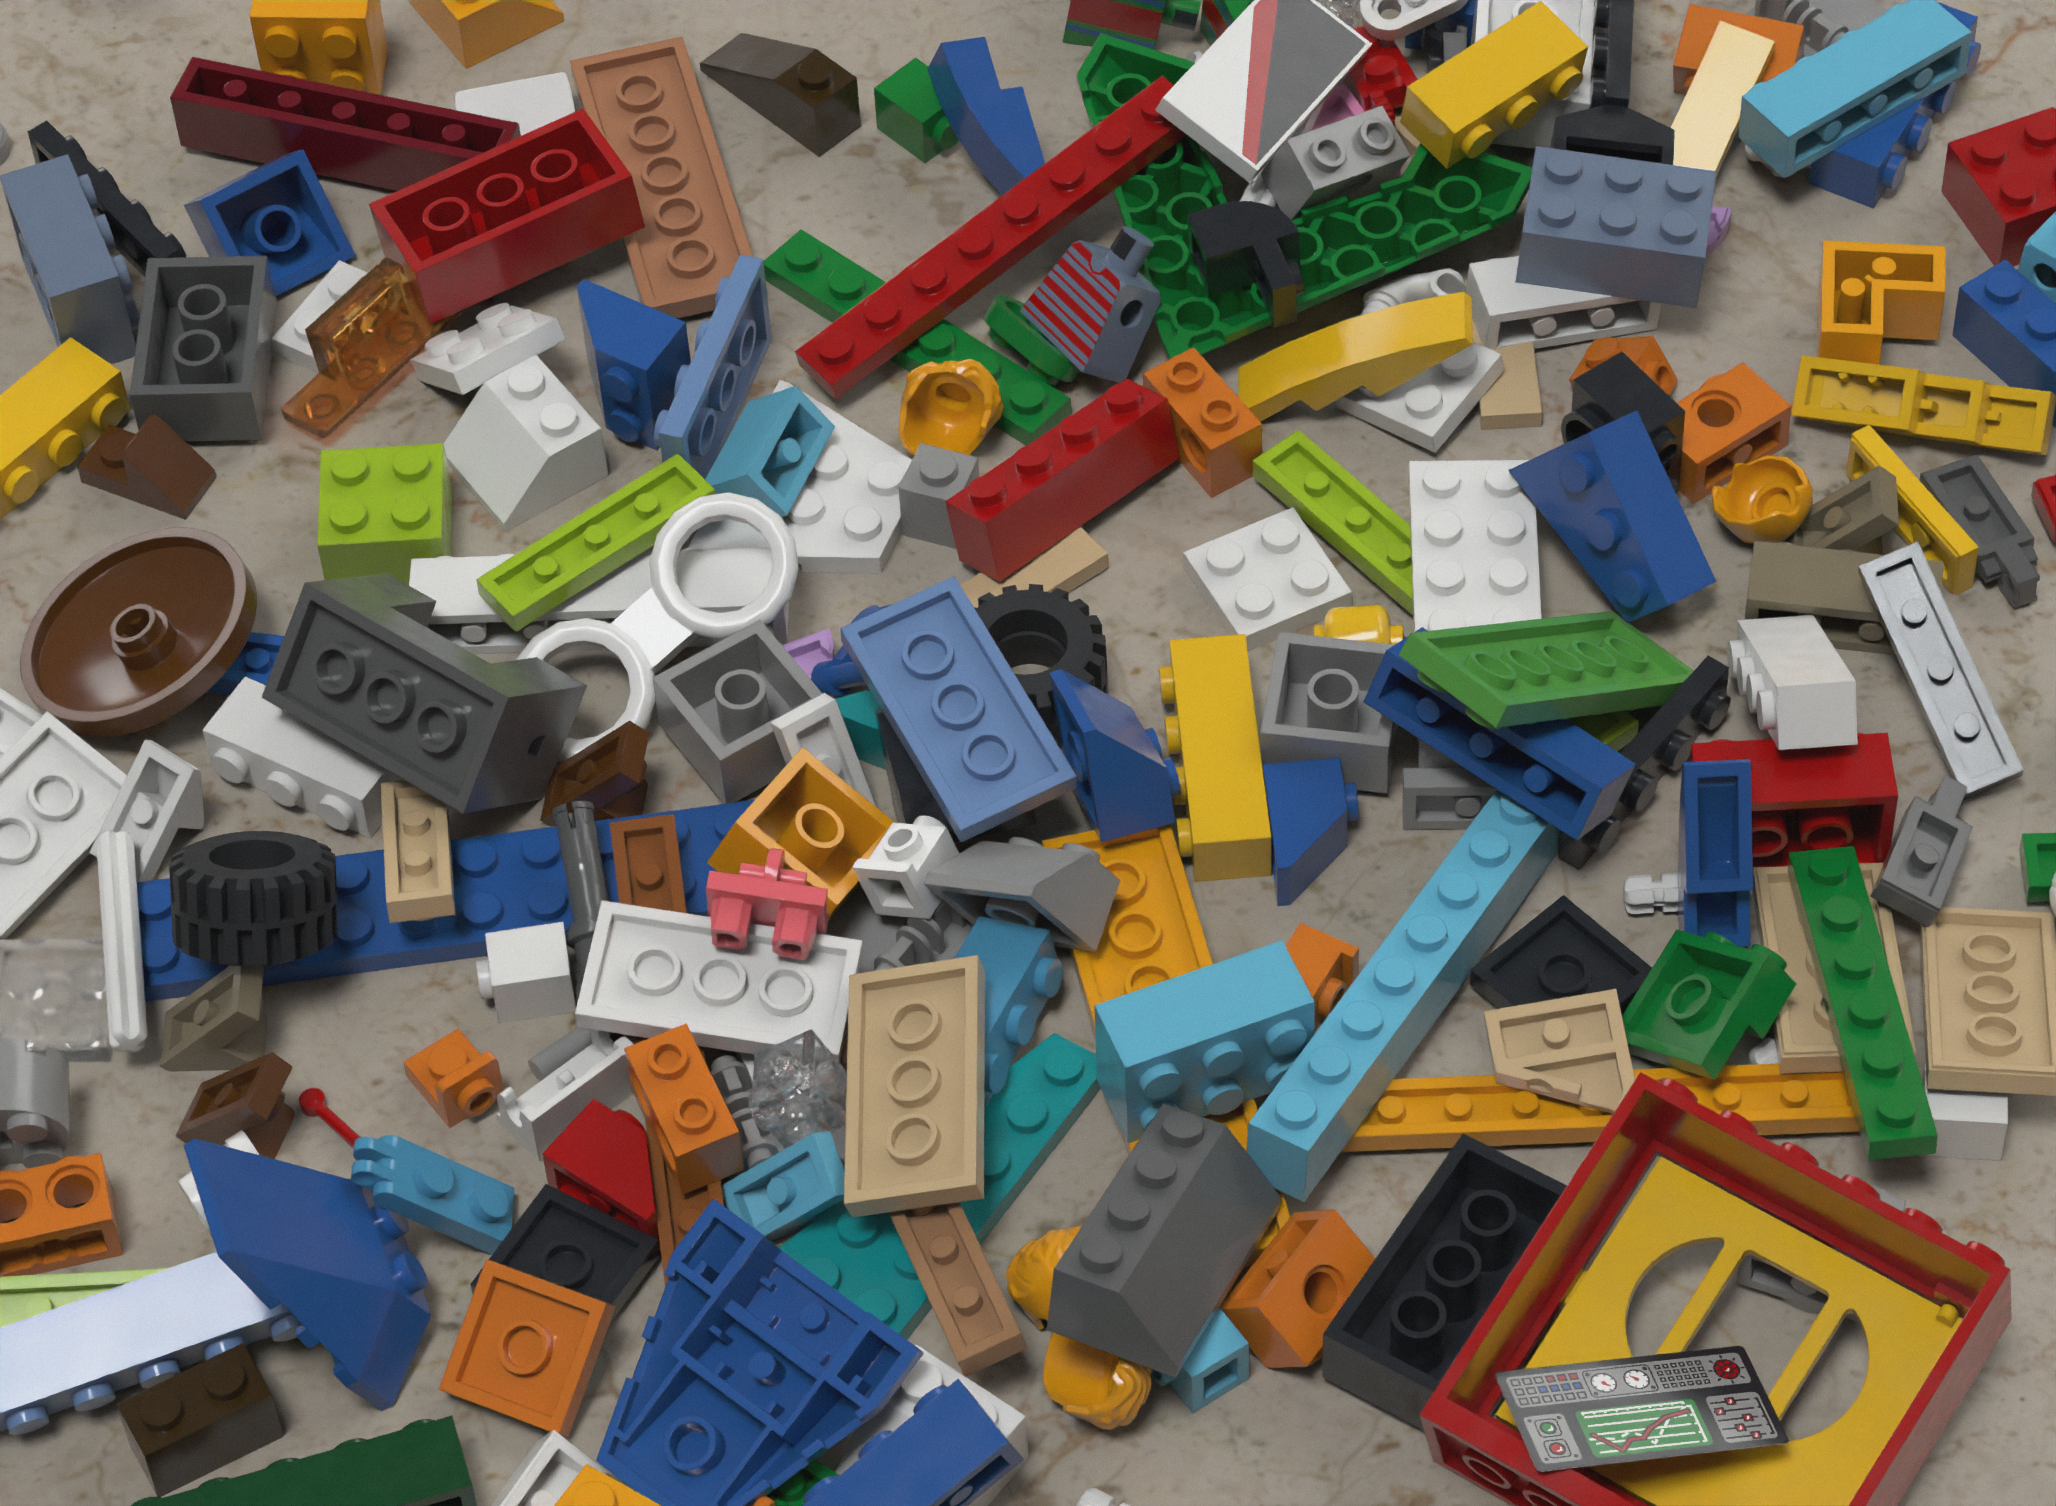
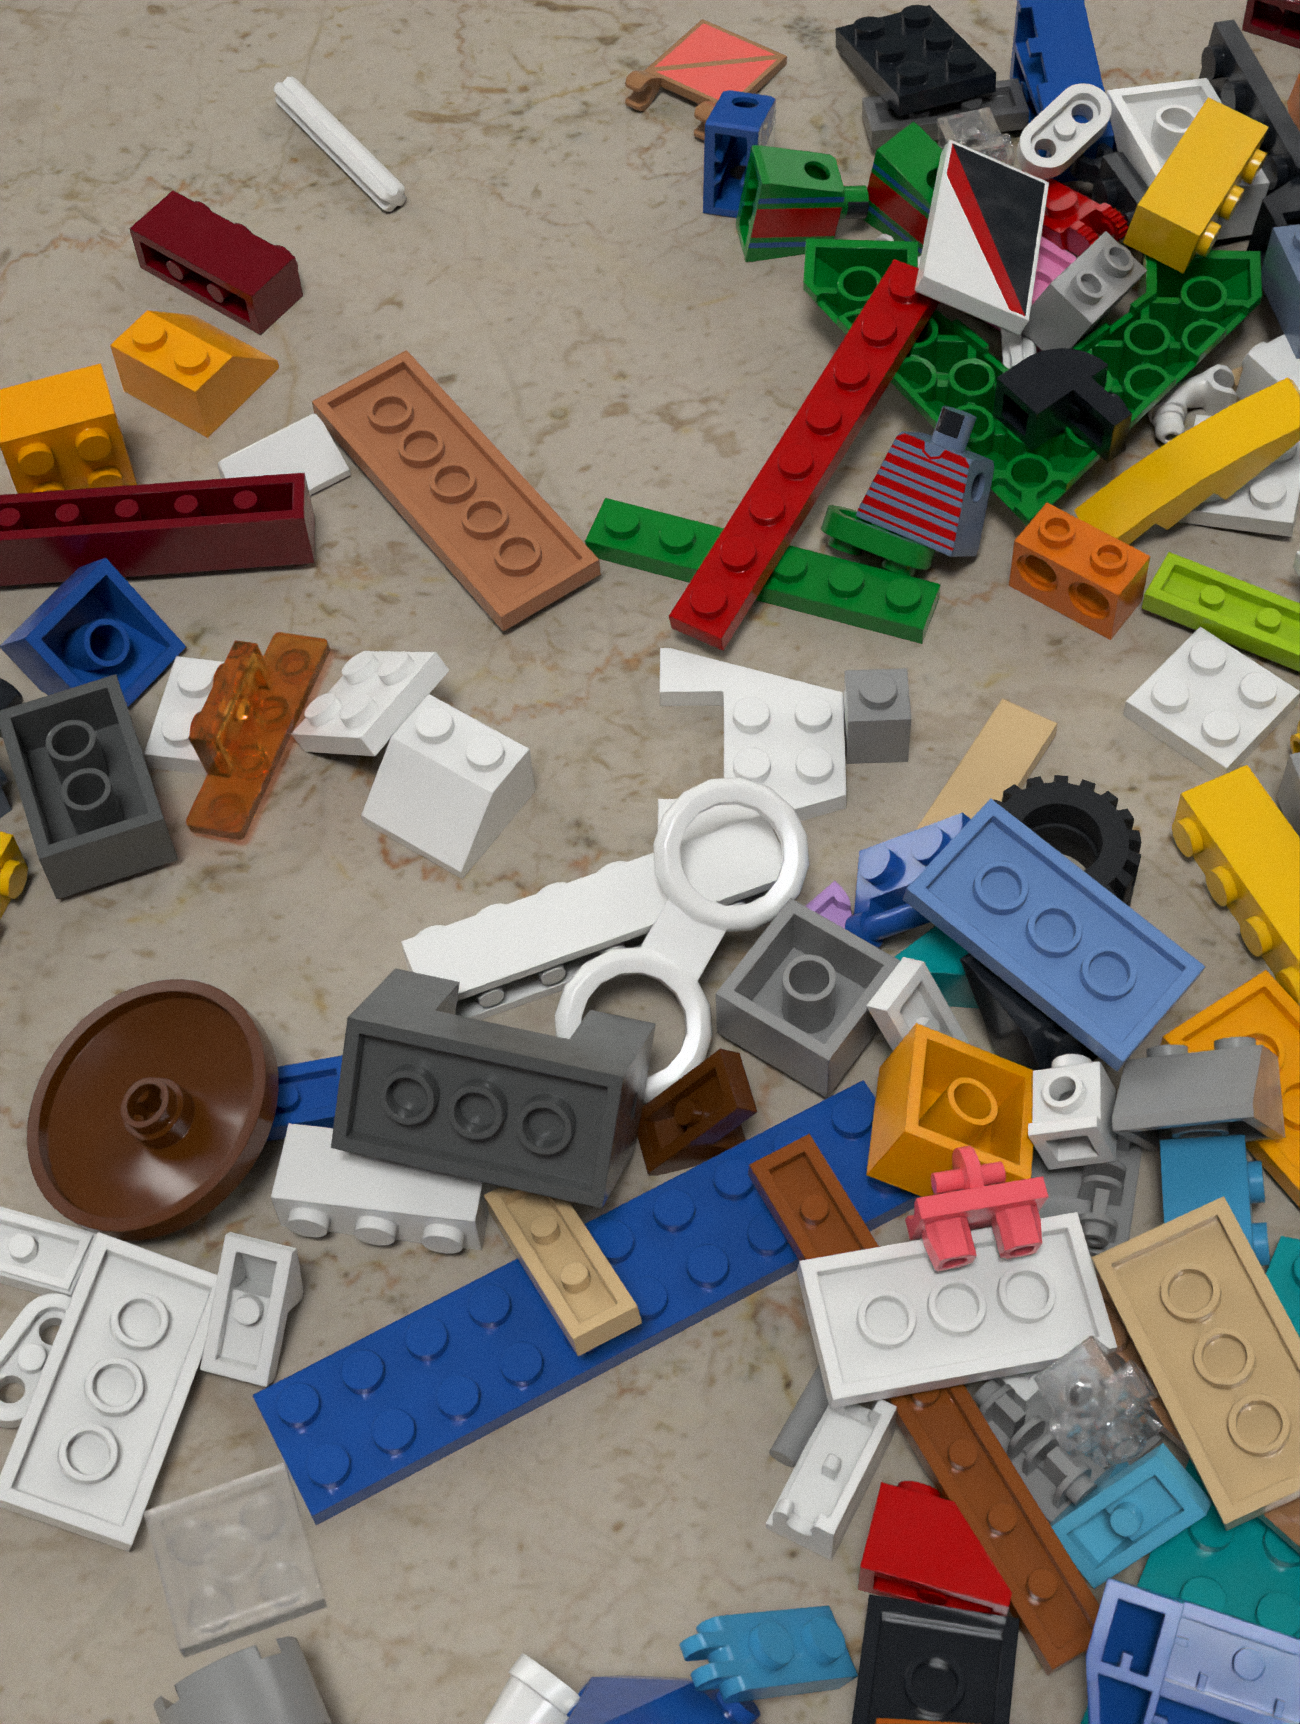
camera: 20 degrees left, 5 degrees up
(121, 941) = (290, 1471): white axle -> none
(148, 467) = (78, 926): reddish brown slope -> none
(217, 1024) = (428, 1525): dark tan slope -> none
(243, 1100) = (497, 1619): reddish brown slope -> none
(253, 898) = (430, 1384): black tyre -> none
(314, 1104) = (565, 1578): red hinge -> none
(383, 509) = (345, 902): lime brick -> none
(455, 1078) = (705, 1497): orange bracket -> none
(508, 215) = (335, 564): red brick -> none
(527, 973) = (728, 1352): white brick -> none
(583, 876) = (758, 1251): dark grey pin -> none
(590, 544) = (586, 870): lime plate -> none
(631, 359) = (522, 673): blue slope -> none
(684, 1109) = (995, 1467): orange brick -> none
(721, 371) = (610, 673): medium blue plate -> none
(772, 449) = (695, 724): medium azure brick -> none
(789, 87) = (527, 368): dark brown slope -> none
(911, 112) = (661, 357): green brick -> none
(948, 406) = (842, 628): light orange hair -> none
(986, 119) = (741, 346): blue slope -> none
(1062, 479) = (987, 666): red brick -> none
(1116, 761) = (1231, 943): blue slope -> none

